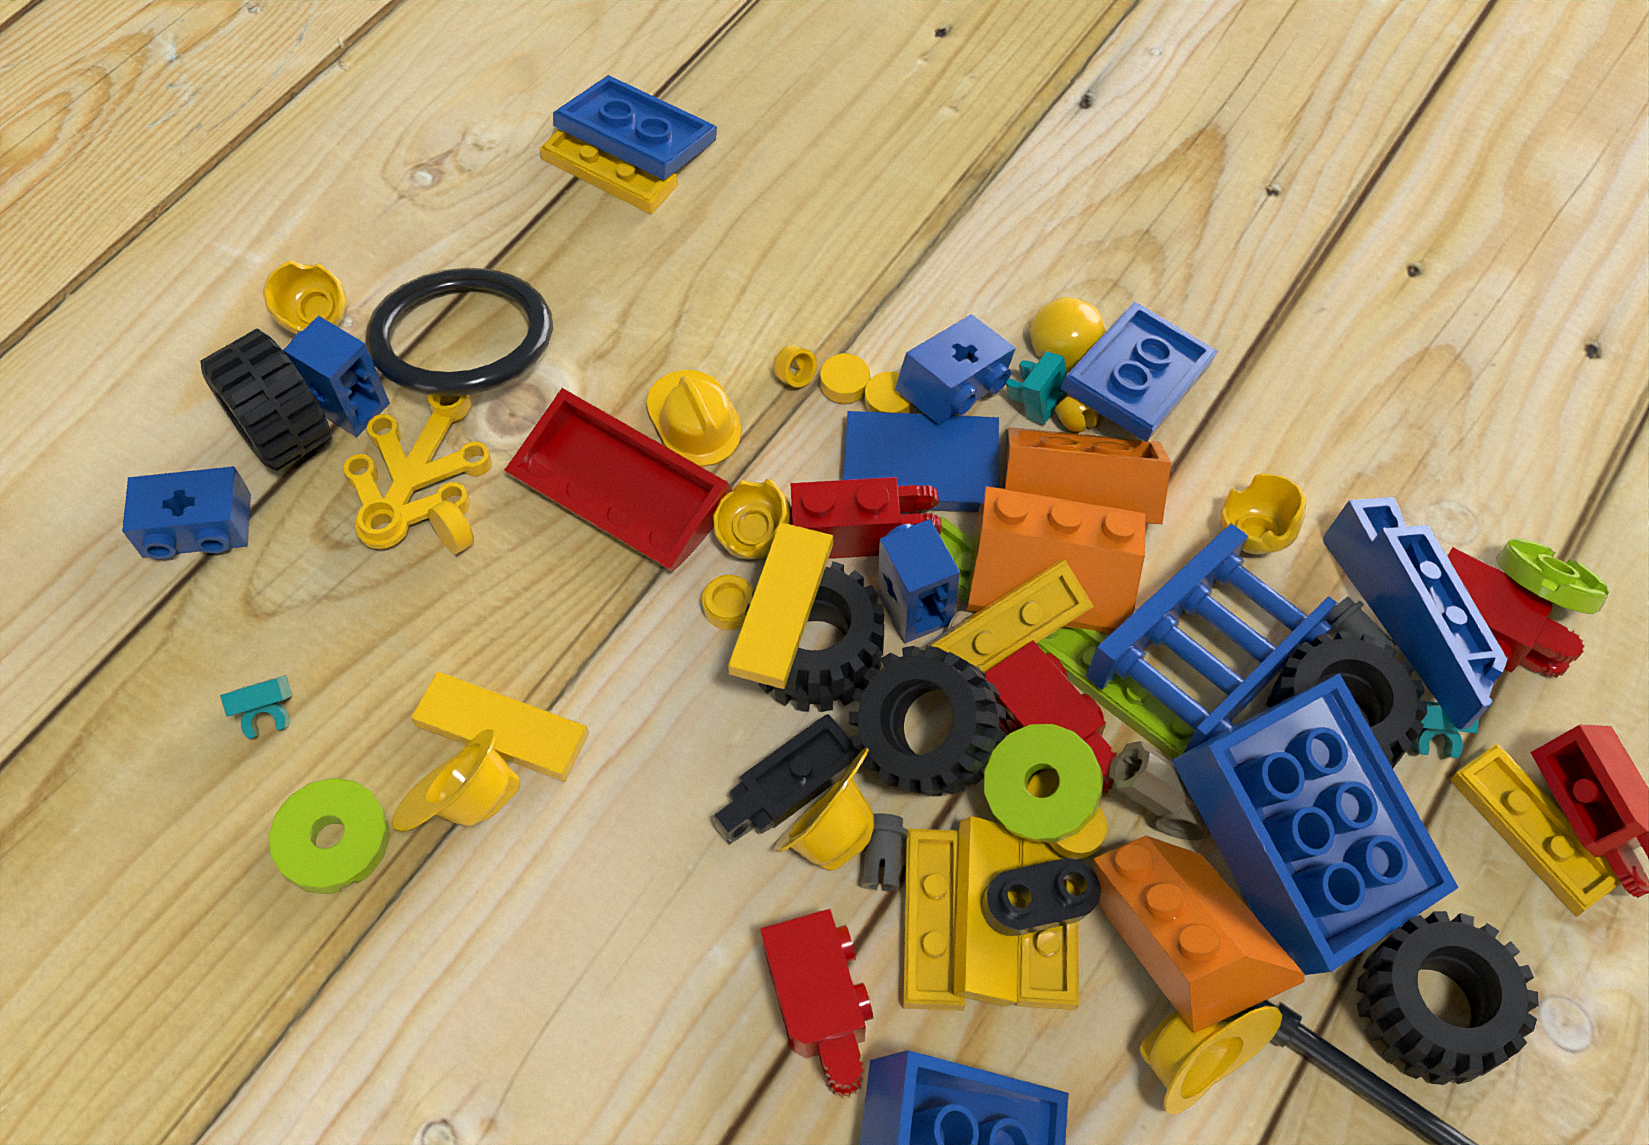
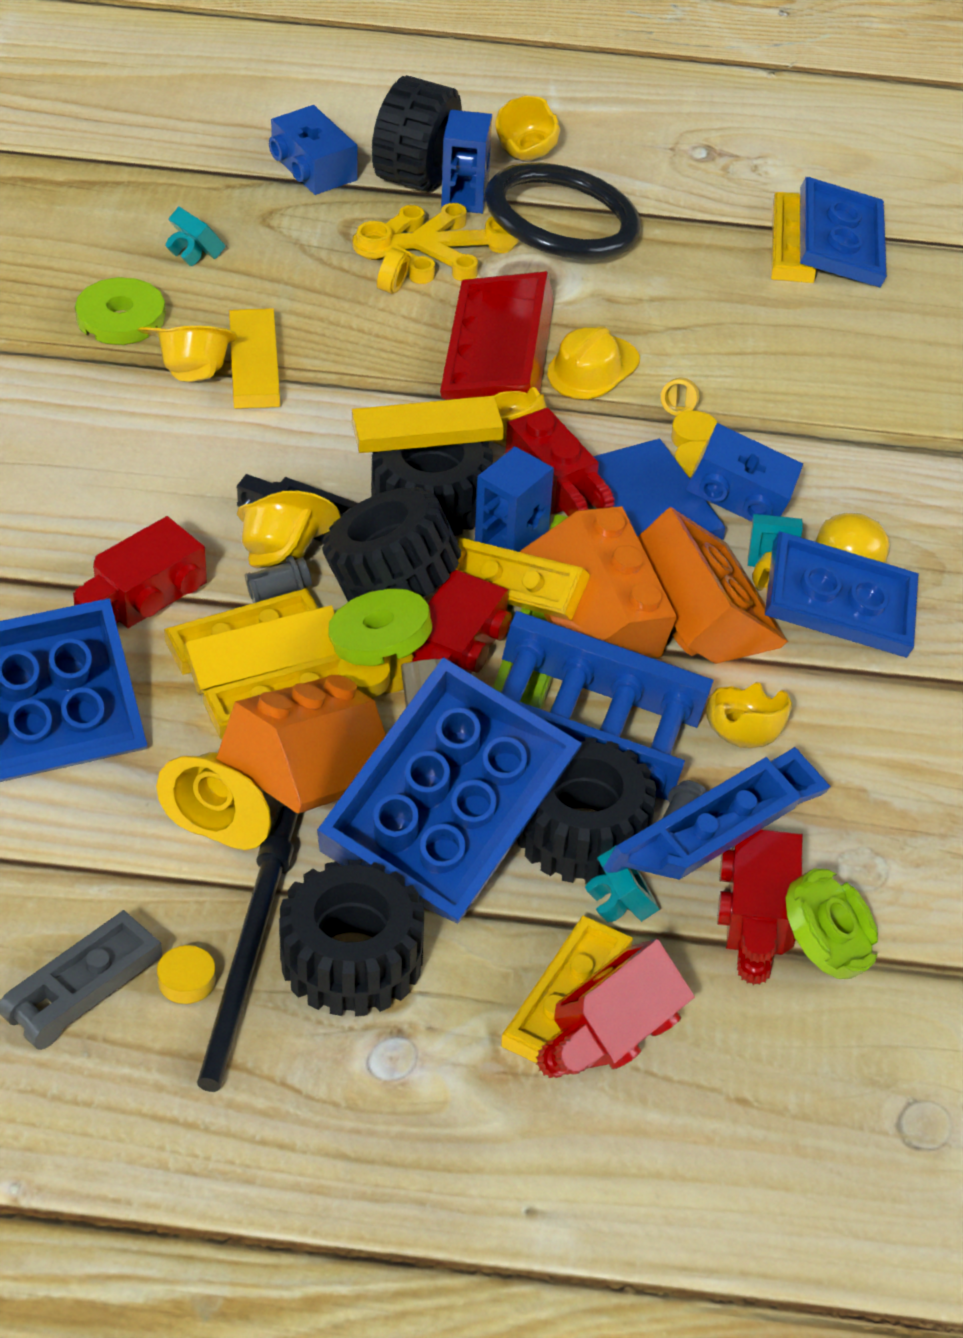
camera: 60 degrees right, 15 degrees down
(1044, 896) = (285, 663): black plate -> none

